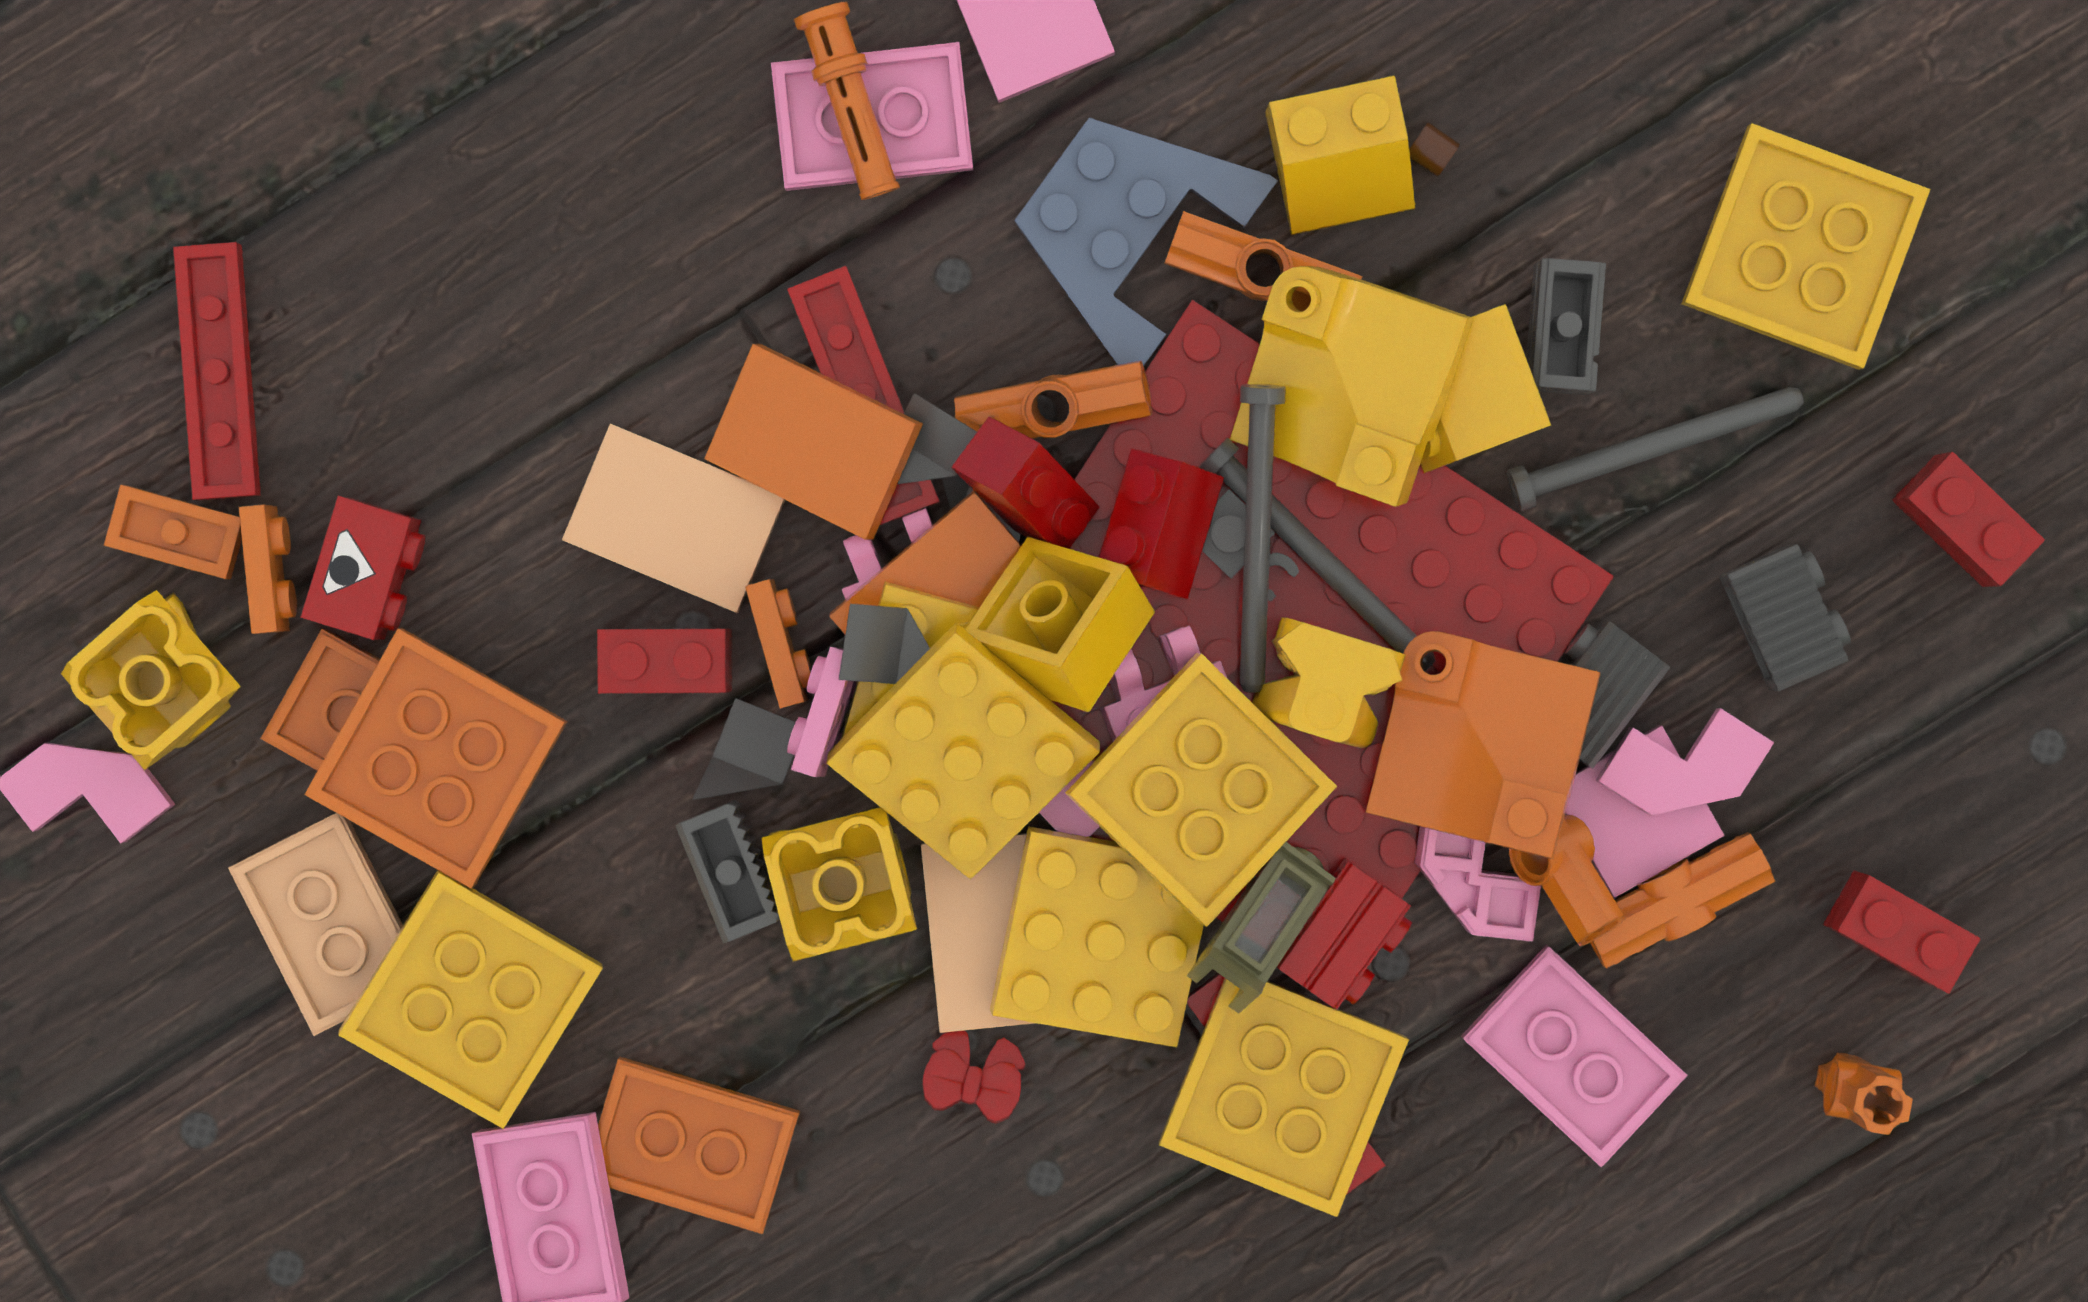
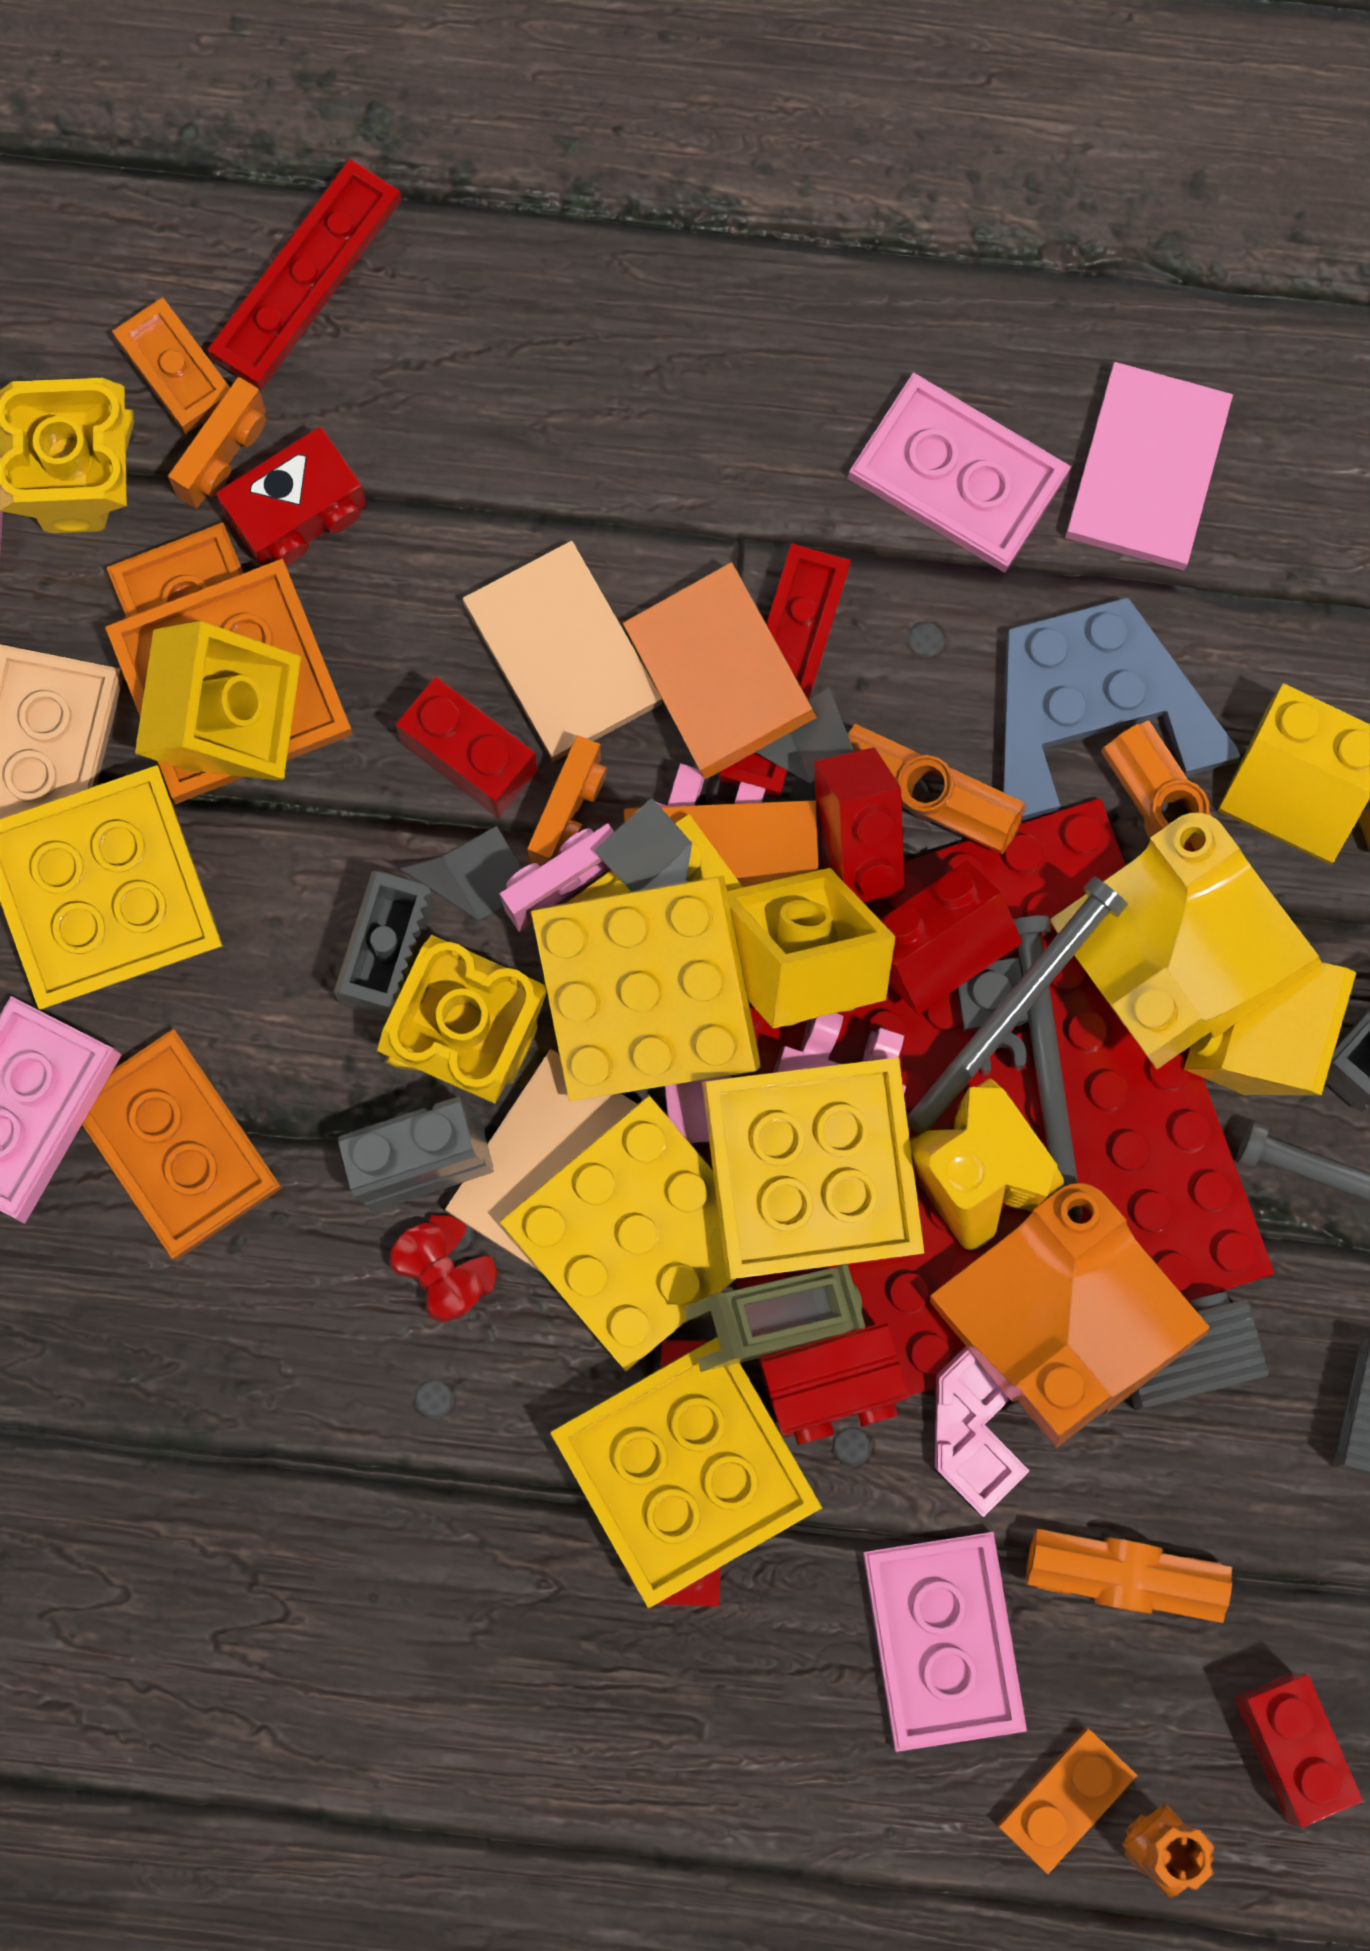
camera: 30 degrees right, 10 degrees down
(447, 790) = (218, 702): none -> yellow slope
(840, 70) = (962, 414): orange pin -> none
(885, 1012) = (415, 1154): none -> dark grey brick
(1572, 882) = (1055, 1485): orange piece -> none
(1628, 840) = (1150, 1479): bright pink tile -> none
(1712, 771) = (1191, 1467): bright pink tile -> none
(1755, 1101) = (1066, 1800): none -> orange plate

